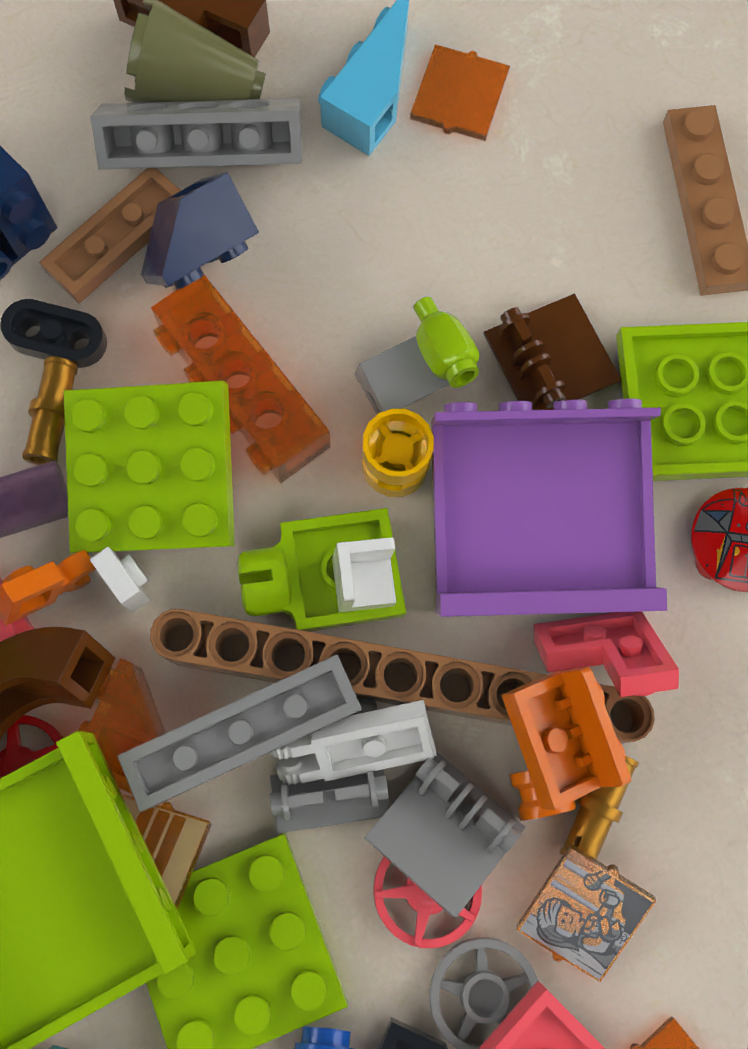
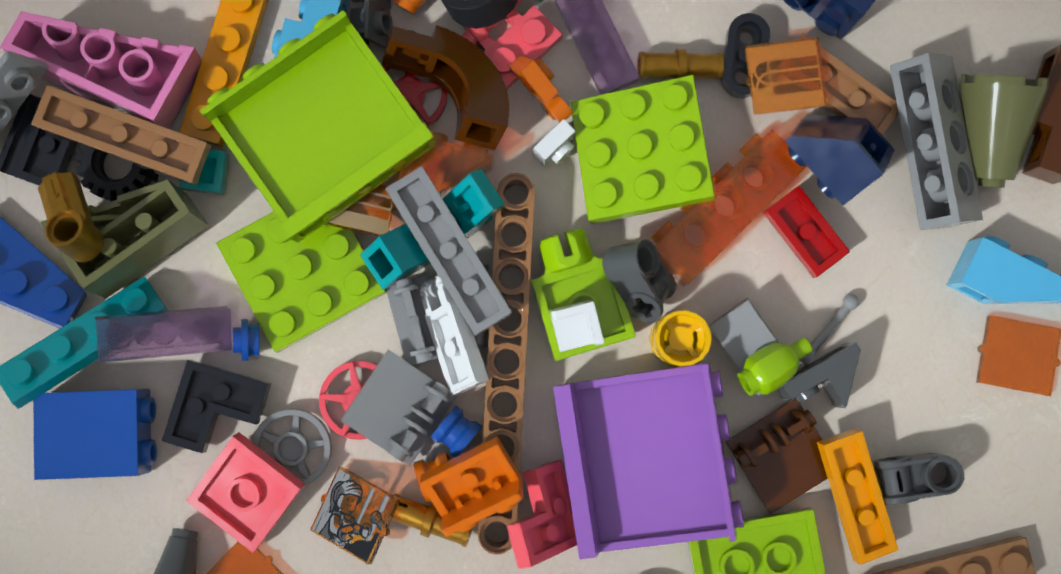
camera: 85 degrees right, 10 degrees up
(88, 287) = (786, 76): none -> clear orange piece
(233, 803) = (398, 252): none -> teal arch
(284, 292) = (806, 232): none -> red plate
(313, 491) = (639, 275): none -> dark grey piece
(376, 259) = (850, 302): none -> light grey hinge
(460, 287) = (832, 370): none -> dark grey slope
(485, 756) = (456, 431): none -> blue wheel
(591, 217) = (909, 477): none -> dark grey piece
(607, 276) = (857, 496): none -> light orange plate

